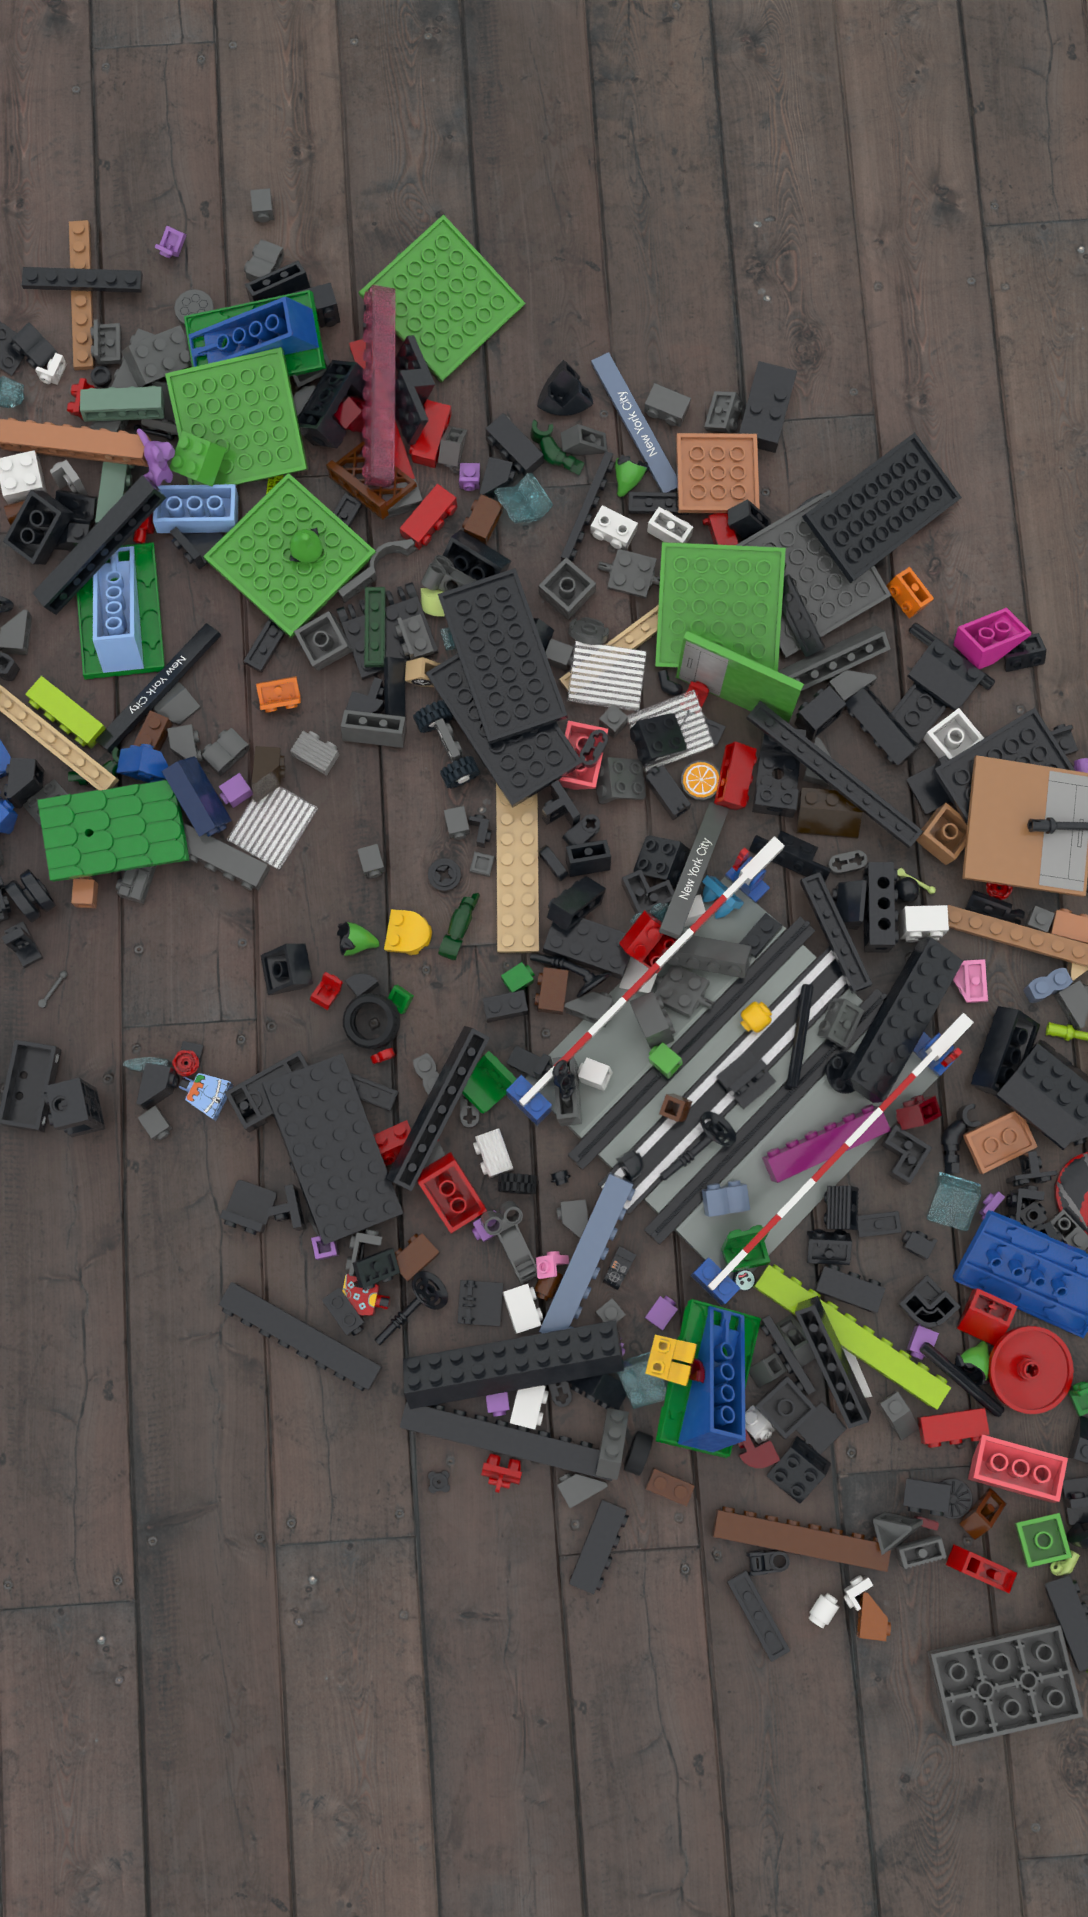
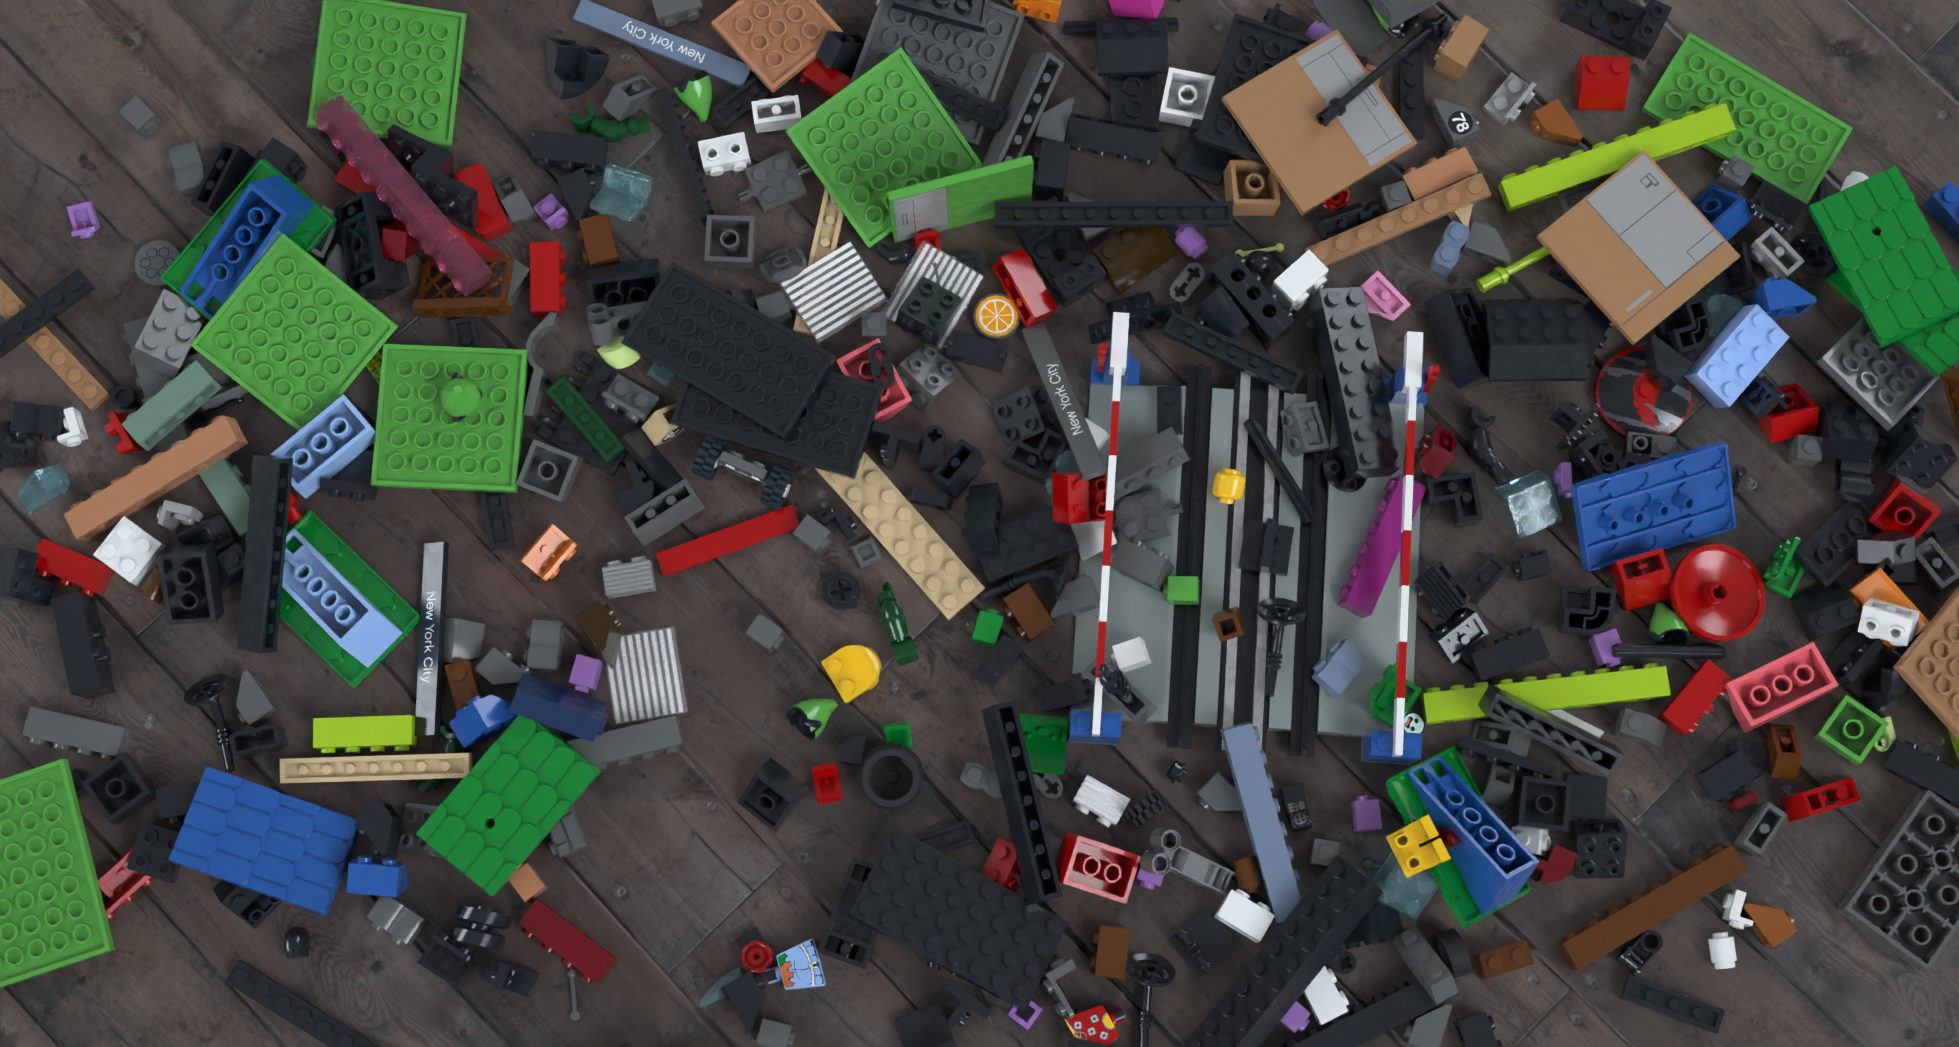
camera: 40 degrees left, 0 degrees up
(77, 952) = (568, 941): none -> dark red brick
(106, 343) = (104, 360): dark grey bracket -> none
(157, 456) = (251, 428): medium lavender animal -> none
(197, 458) = (289, 399): bright green brick -> none
(376, 1268) = (1089, 991): black bracket -> none
(383, 1056) = (927, 799): red tile -> none
(399, 781) = (727, 541): none -> red tile
(547, 1264) = (1235, 859): bright pink bracket -> none
(631, 1164) = (1231, 707): black piece -> none
(715, 888) = (1093, 402): dark azure tile -> none
(873, 837) = (1191, 242): none -> medium lavender brick
(894, 1530) = (1722, 829): dark grey slope -> none
(999, 1141) = (1524, 418): nougat plate -> none

